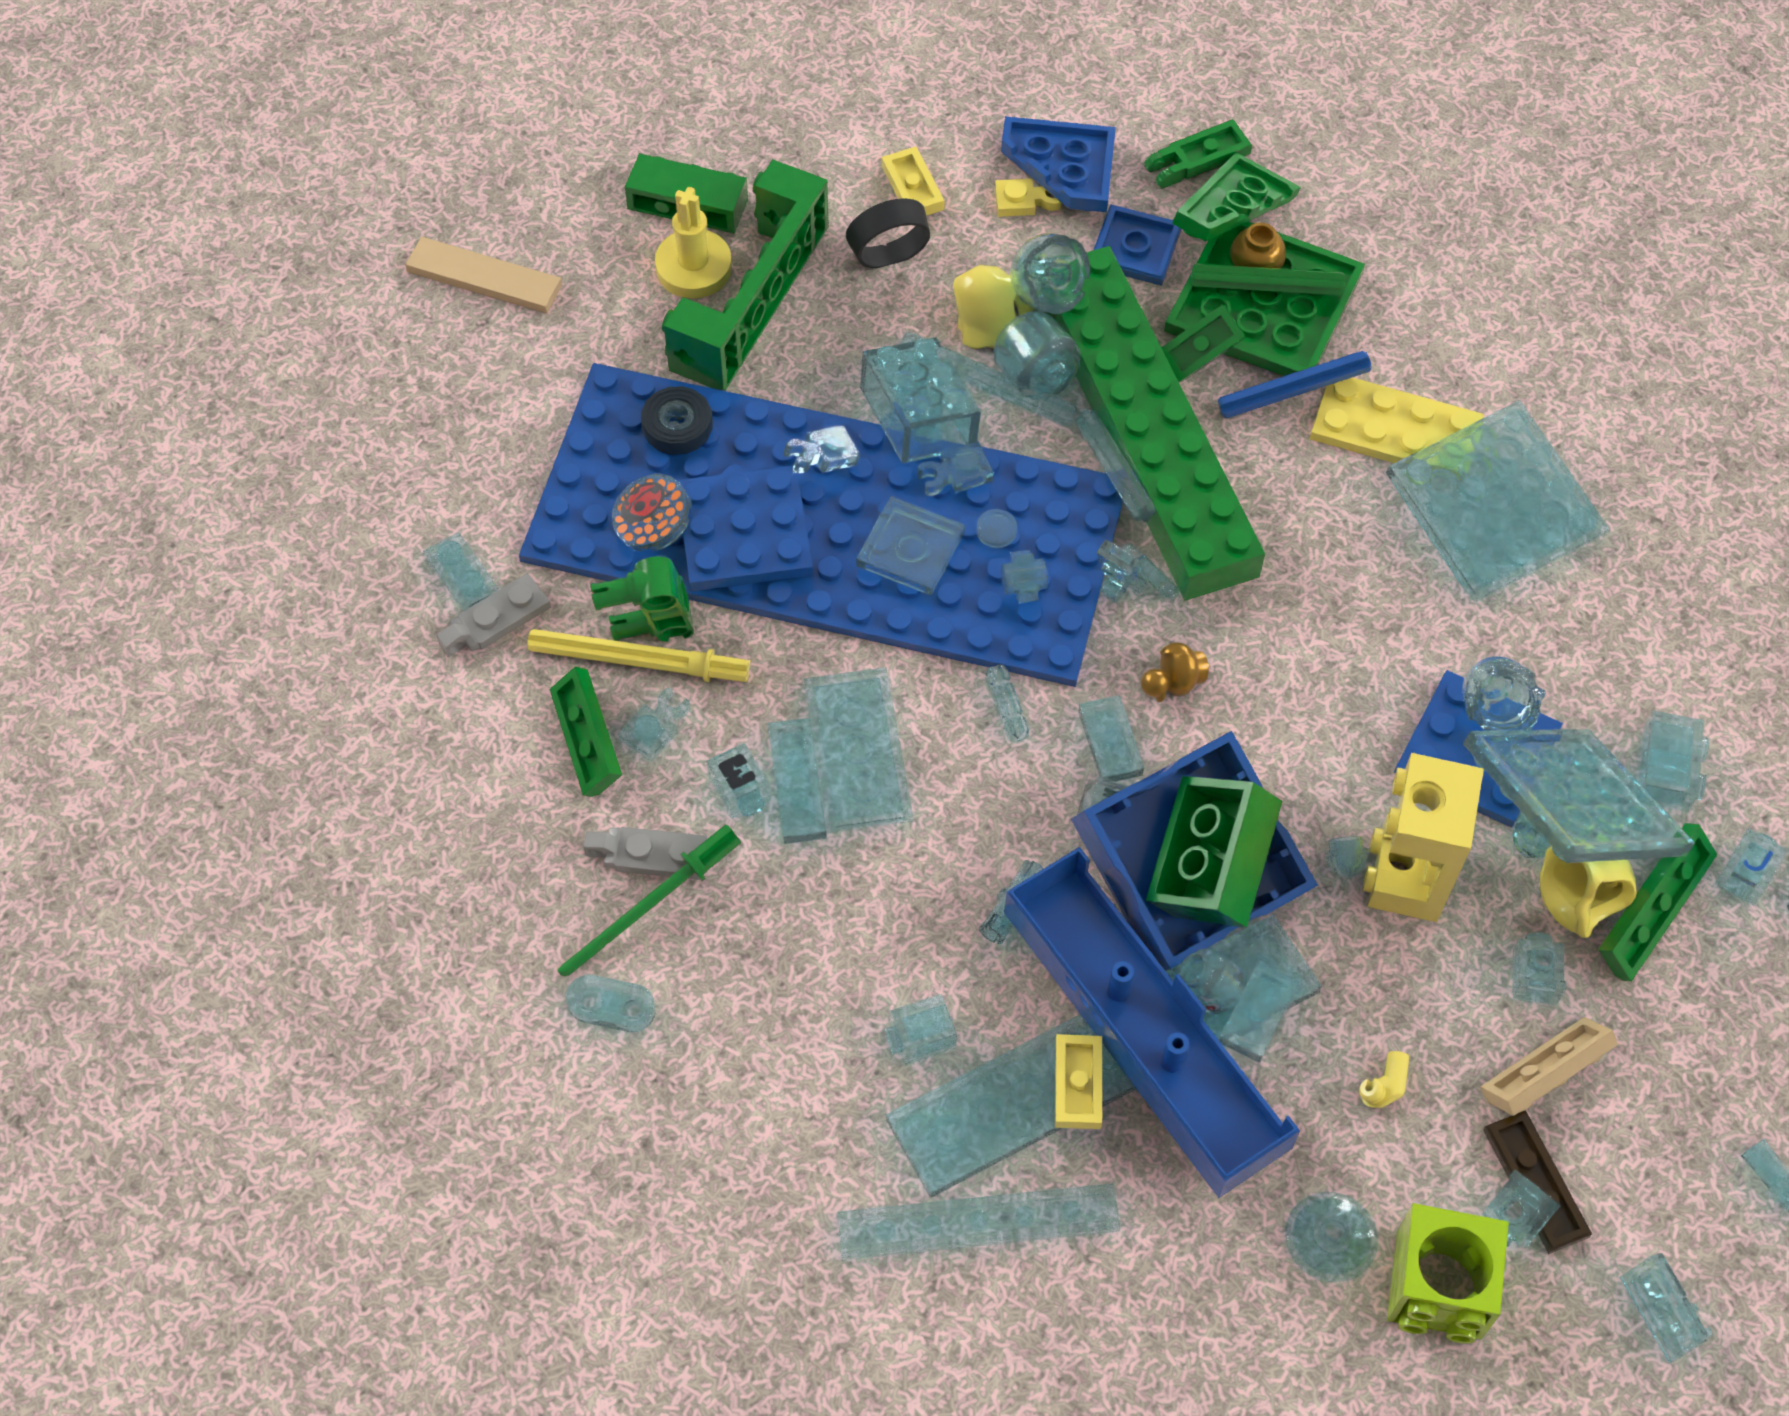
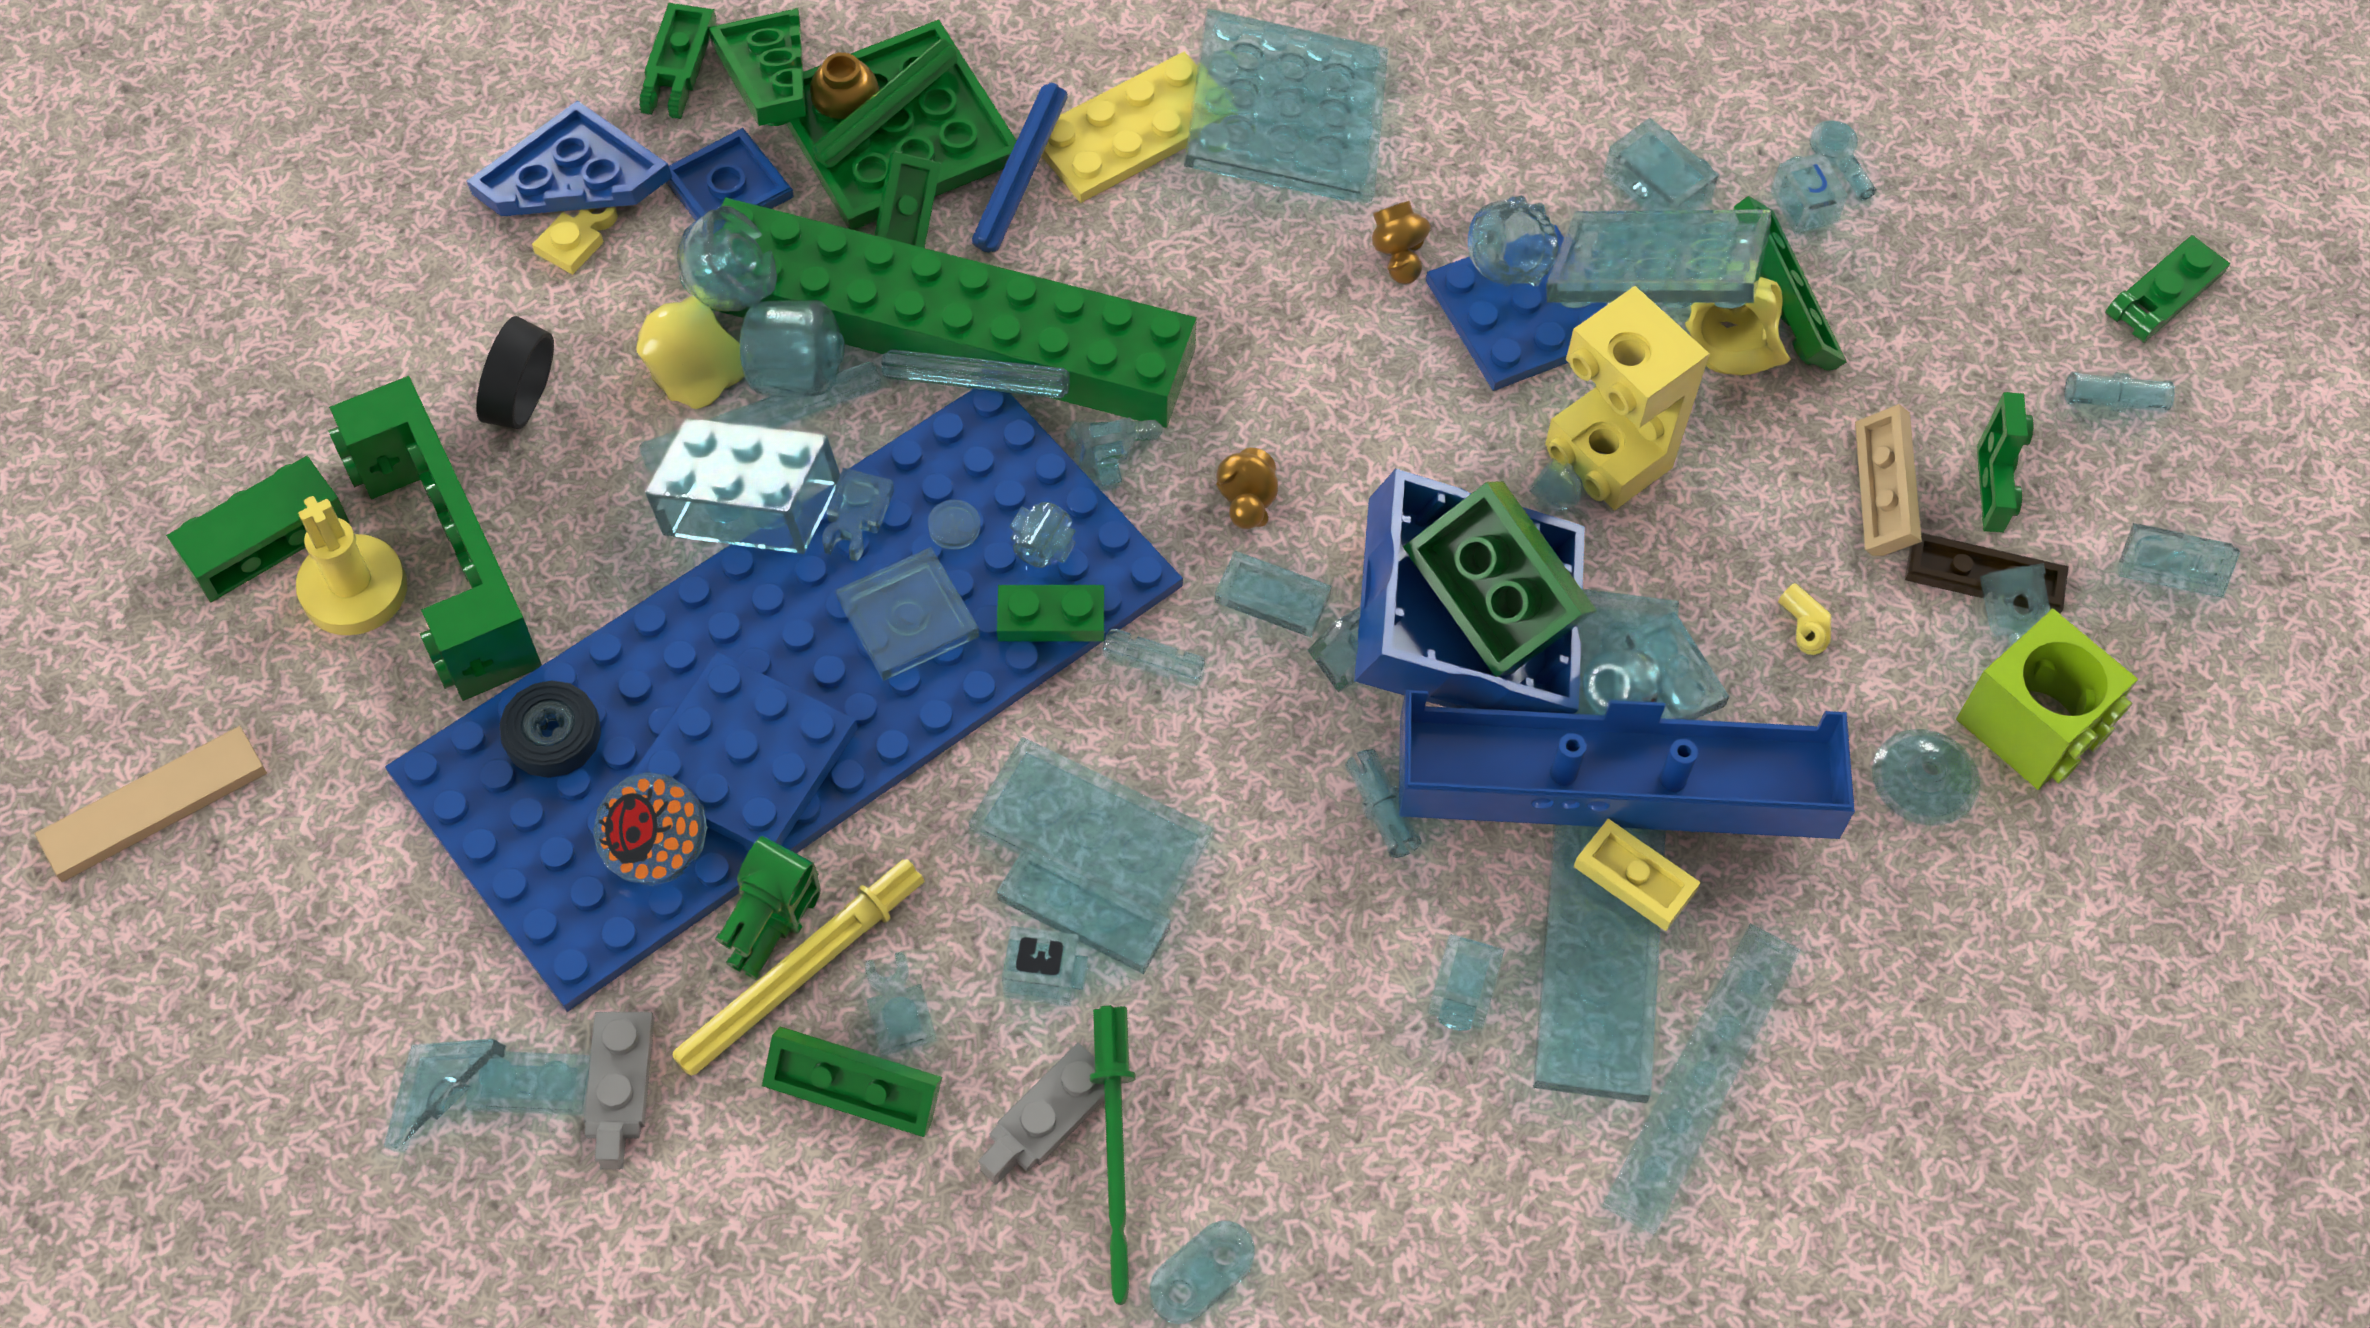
camera: 55 degrees left, 0 degrees up
(421, 527) = (433, 1082): none -> clear light blue tile
(826, 447) = (721, 610): clear light blue plate -> none
(912, 179) = (457, 315): light yellow plate -> none
(979, 621) = (1050, 613): none -> green plate
(1456, 629) = (1395, 234): none -> pearl gold animal
(1537, 982) = (1787, 421): clear light blue brick -> none
(1638, 1127) = (1998, 459): none -> green plate

